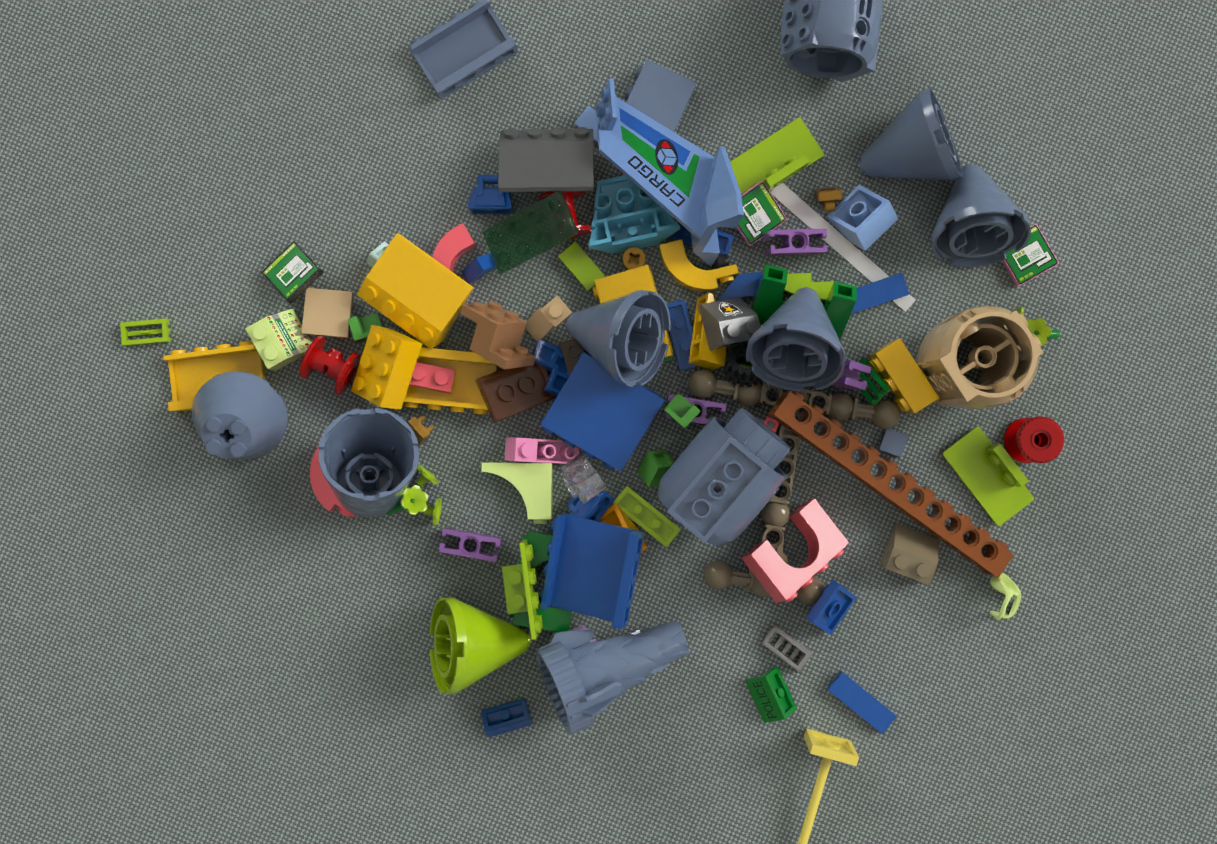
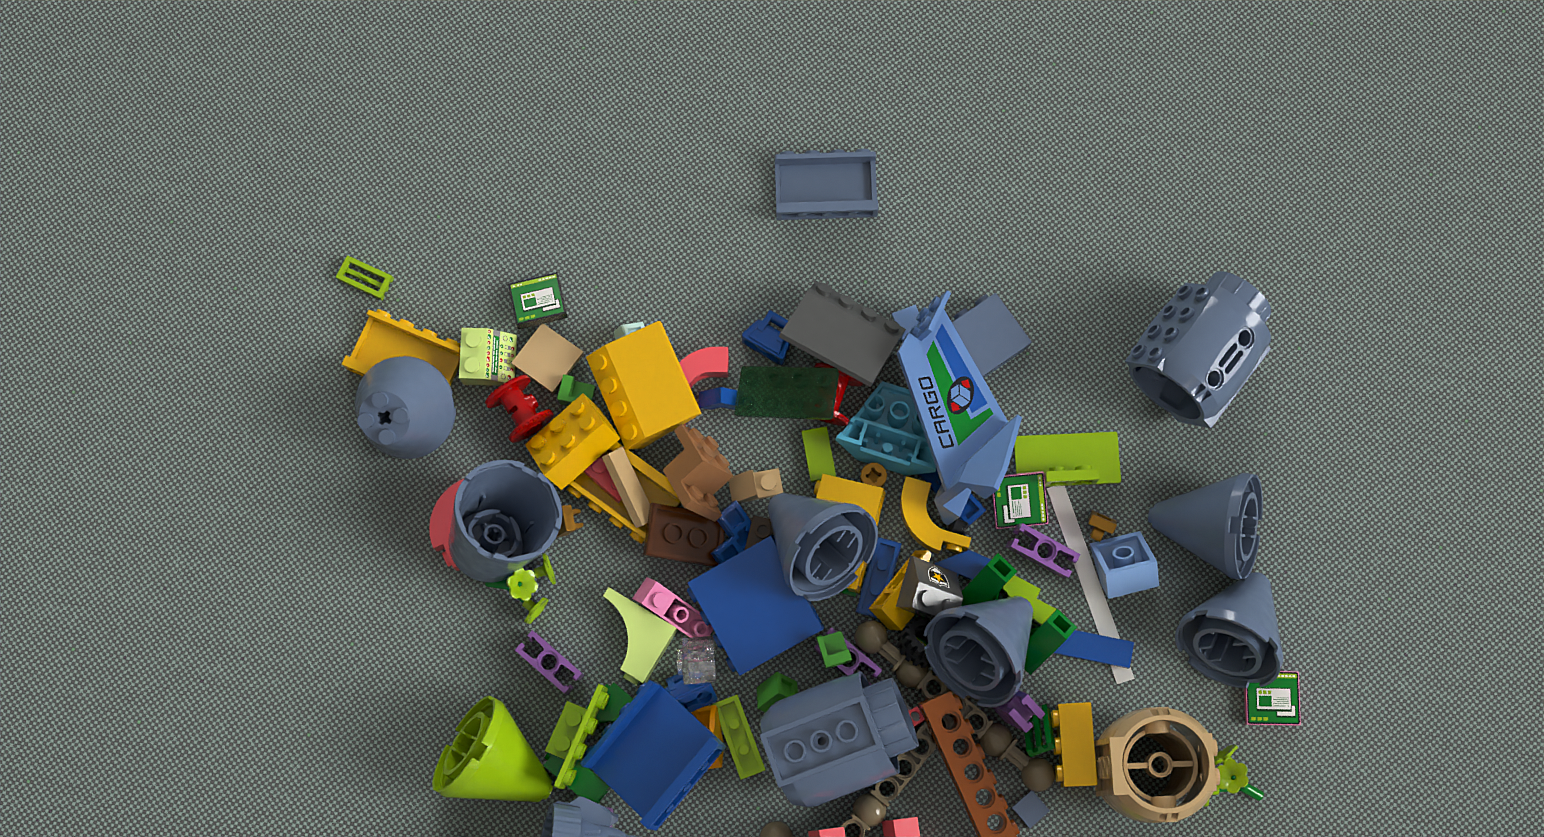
camera: 30 degrees right, 10 degrees down
(450, 376) = (628, 486): none -> tan tile

